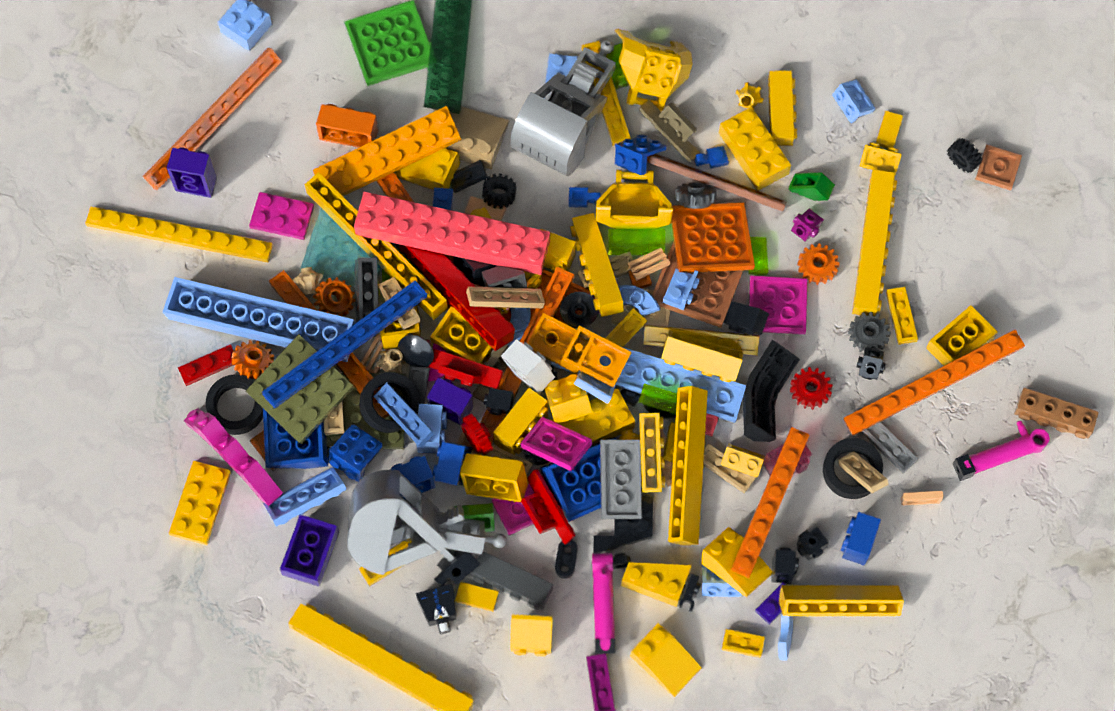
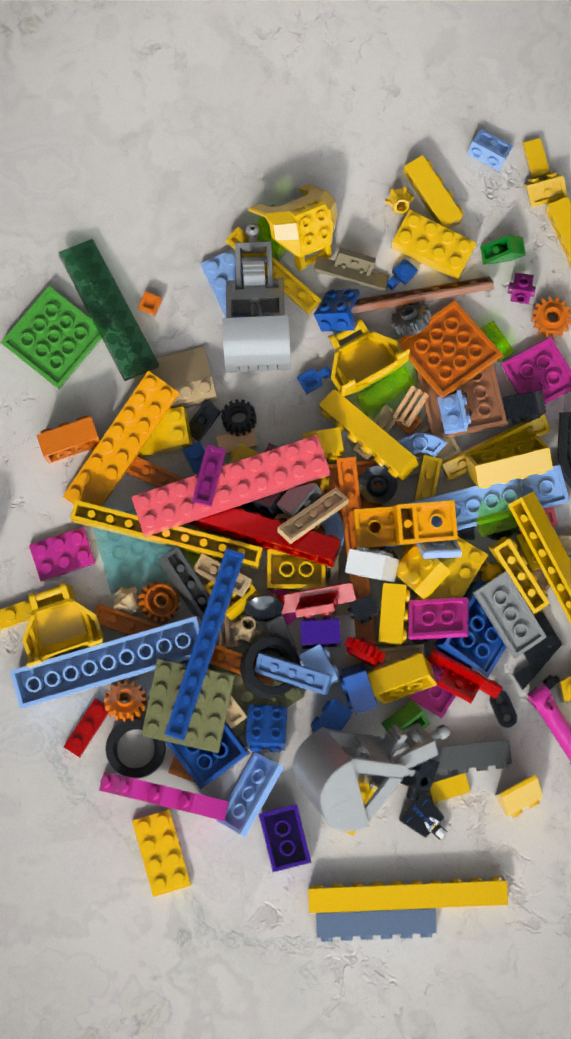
camera: 25 degrees left, 10 degrees up
(238, 265) = (59, 626): none -> yellow piece
(340, 669) = (375, 923): none -> sand blue brick
(437, 209) = (209, 475): none -> magenta plate
(486, 61) = (150, 303): none -> orange plate

